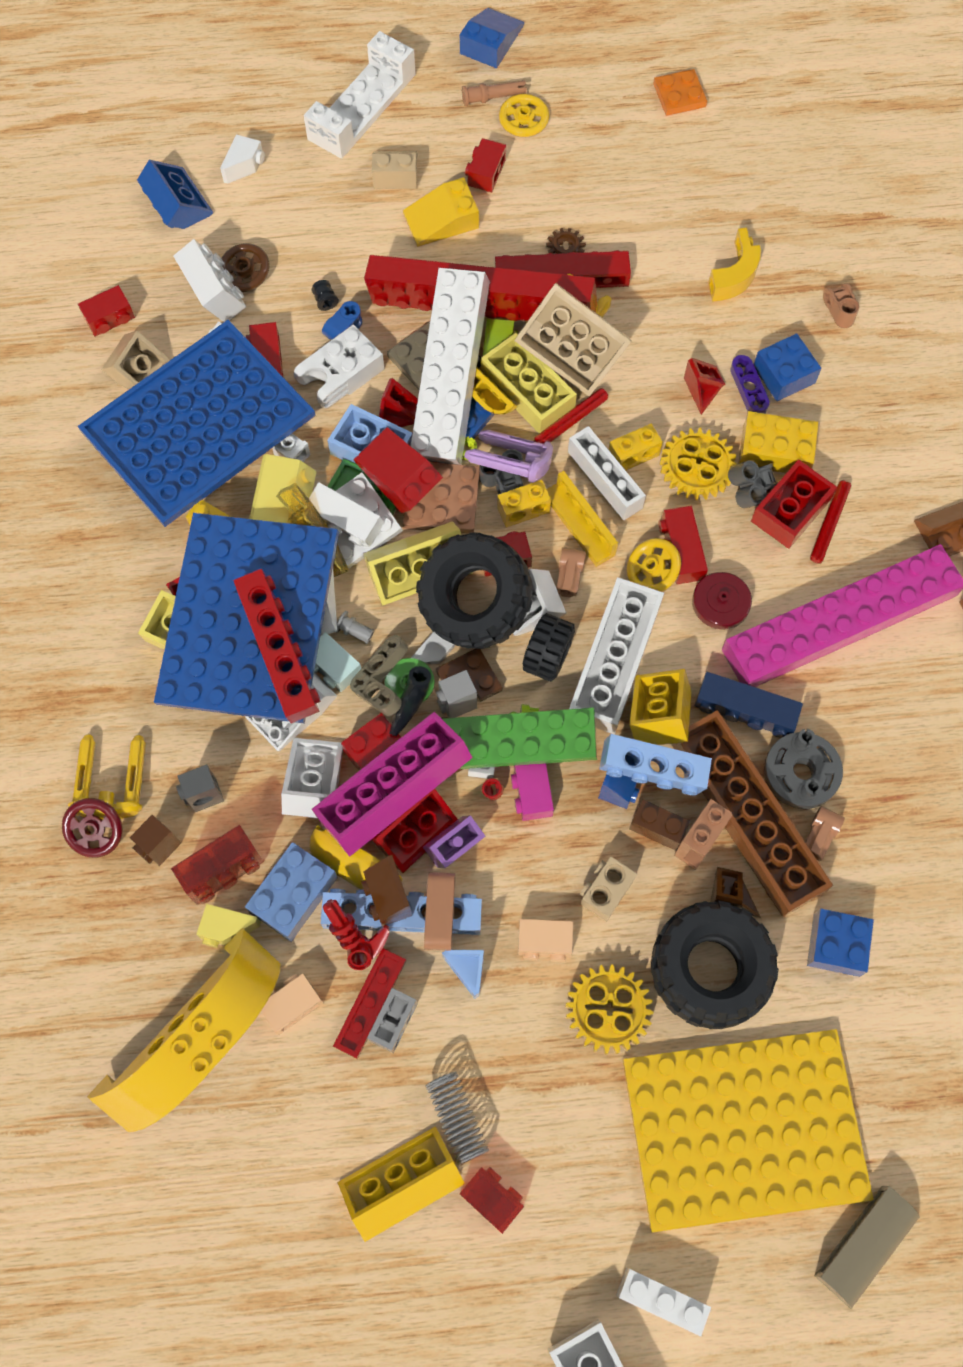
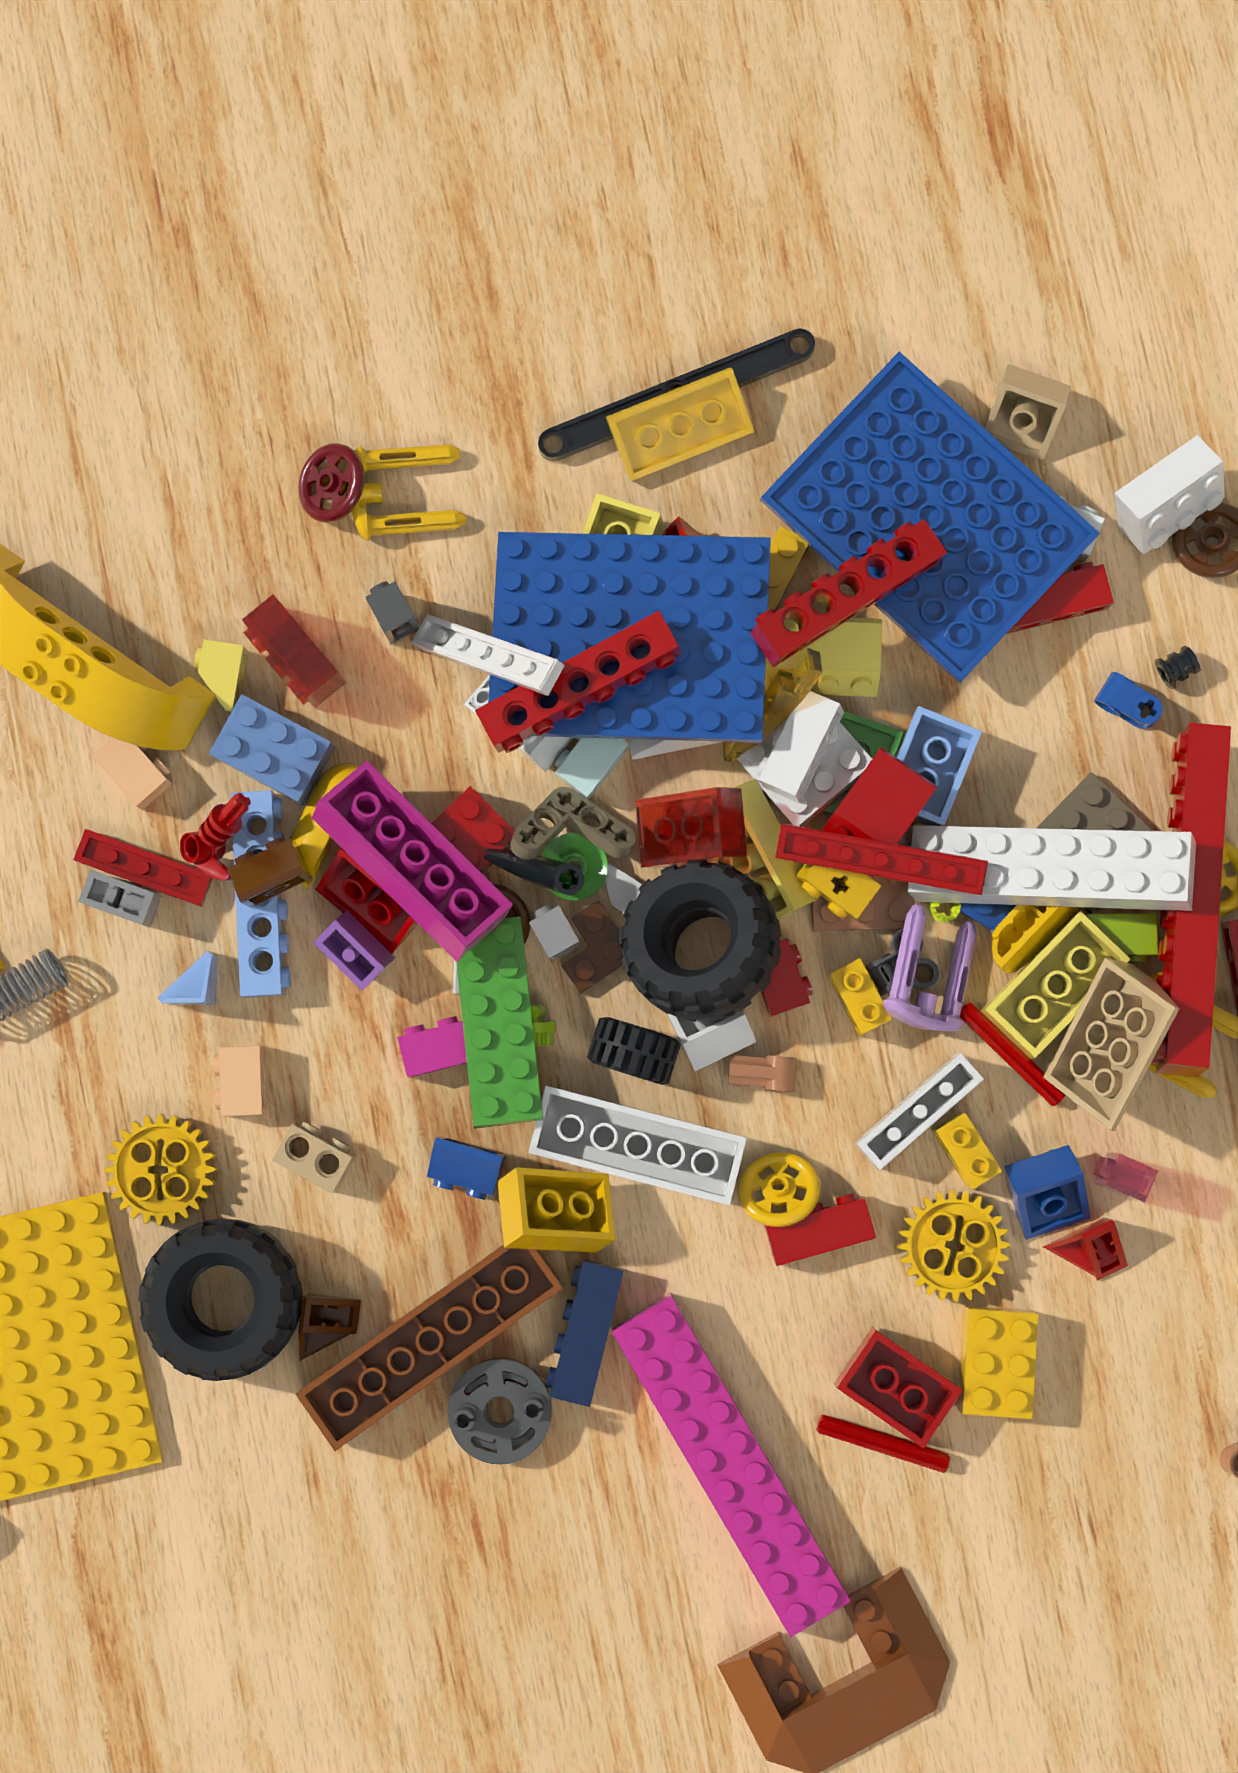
camera: 90 degrees right, 15 degrees up
(79, 598) = (747, 365): none -> black beam
(99, 579) = (680, 424): none -> yellow plate
(106, 310) = (1110, 352): red brick -> none
(154, 841) = (317, 566): reddish brown brick -> none
(242, 465) = (780, 643): none -> red brick
(245, 711) = (488, 654): none -> white tile
(297, 450) = (905, 663): white brick -> none
(310, 775) = (429, 754): white slope -> none
(343, 364) = (1042, 708): white brick -> none
(354, 628) = (646, 779): light grey pin -> none
(392, 592) = (691, 827): none -> clear red brick
(398, 404) = (996, 798): red slope -> none
(431, 465) = (881, 859): none -> red tile
(439, 911) = (254, 941): nougat beam -> none
(442, 502) = (850, 899): none -> yellow brick
(487, 789) = (434, 988): red hinge -> none
(582, 520) = (844, 1079): yellow fence -> none
(659, 353) = (1124, 1176): none -> clear pink brick
(659, 825) = (404, 1219): reddish brown brick -> none
(664, 403) = (1047, 1191): none -> blue slope
(695, 767) = (479, 1152): light blue brick -> none
(703, 834) = (388, 1277): nougat panel -> none
(722, 600) = (739, 1289): dark red wheel -> none
(750, 376) = (1117, 1299): dark purple beam -> none
(753, 482) = (928, 1330): dark grey piece -> none
(787, 367) = (1130, 1371): blue brick -> none
(824, 828) = (425, 1442): nougat piece -> none
(840, 942) = (269, 1464): blue brick -> none

